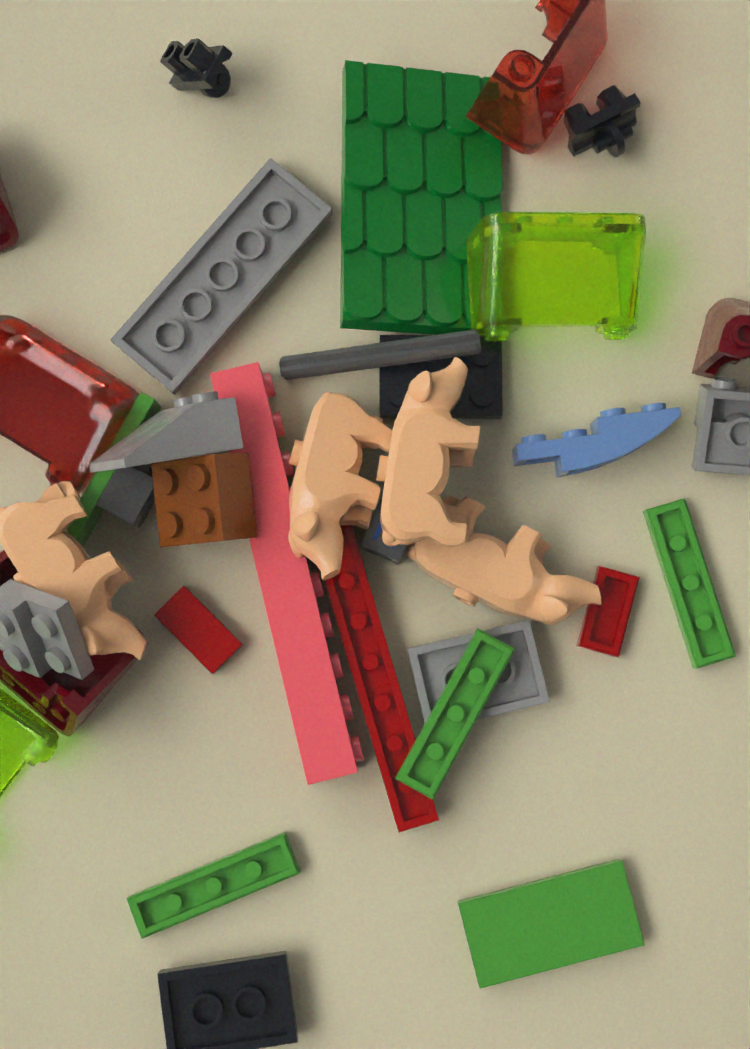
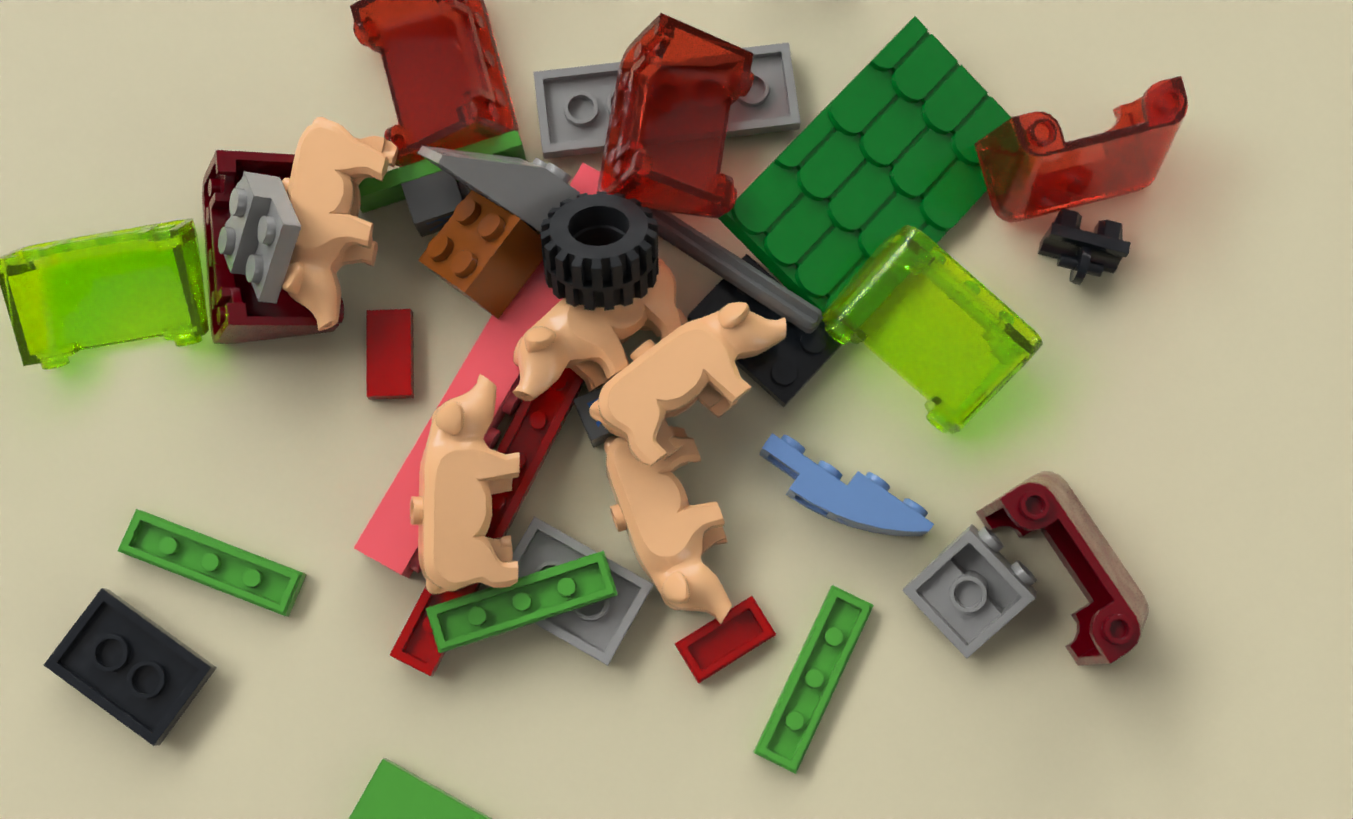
camera: 45 degrees right, 5 degrees down
(246, 288) = (674, 119): none -> clear red windscreen
(275, 404) = (600, 250): none -> black tyre
(349, 686) = (456, 497): none -> light nougat animal

